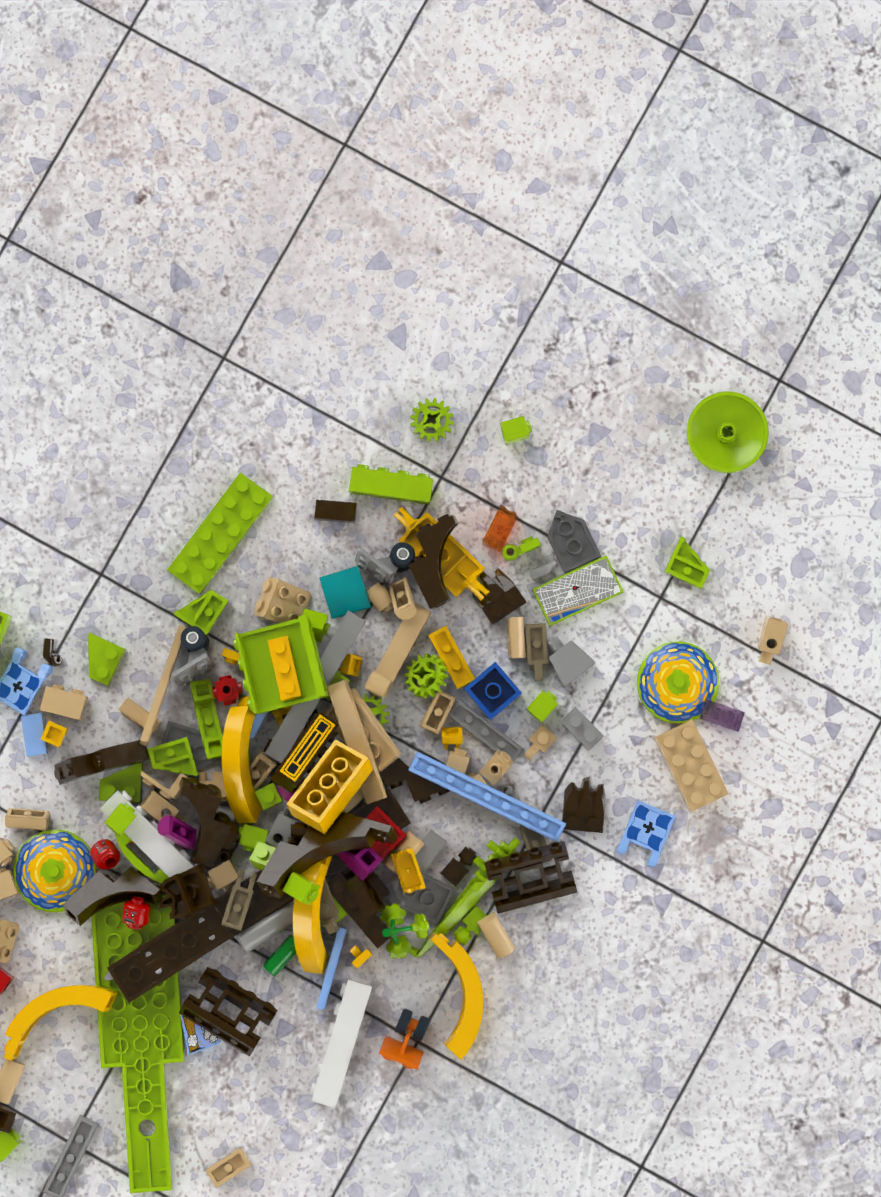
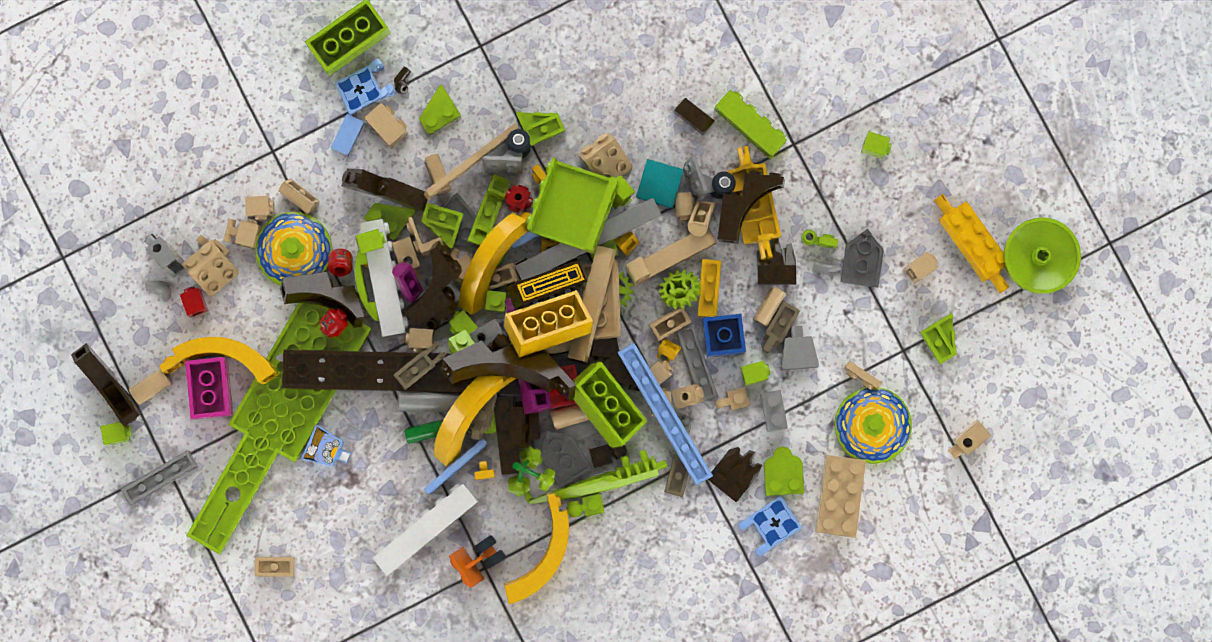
camera: 30 degrees right, 0 degrees up
(54, 734) = (363, 144): yellow tile -> none
(62, 1047) = (209, 388): none -> dark pink brick
(187, 893) = (383, 333): dark brown plate -> none
(220, 533) = (593, 74): lime plate -> none
(220, 1024) = (341, 451): dark brown fence -> none
(284, 668) = (574, 209): yellow plate -> none
(302, 888) = (474, 387): lime brick -> none
(408, 870) = (565, 429): yellow hinge -> none
(430, 823) = (607, 405): none -> lime brick
(440, 413) = (823, 94): lime gear -> none
(496, 935) = (600, 526): tan brick -> none
(500, 528) = (813, 213): clear orange hinge -> none
(533, 891) = (654, 512): dark brown fence -> none
(577, 590) = (842, 302): tile -> none
(627, 778) = (783, 473): none -> lime plate
(628, 513) = (921, 267): none -> tan brick
(648, 646) = (856, 372): none -> tan plate
(658, 459) = (973, 241): none -> yellow plate
(722, 715) = (890, 473): clear purple tile -> none

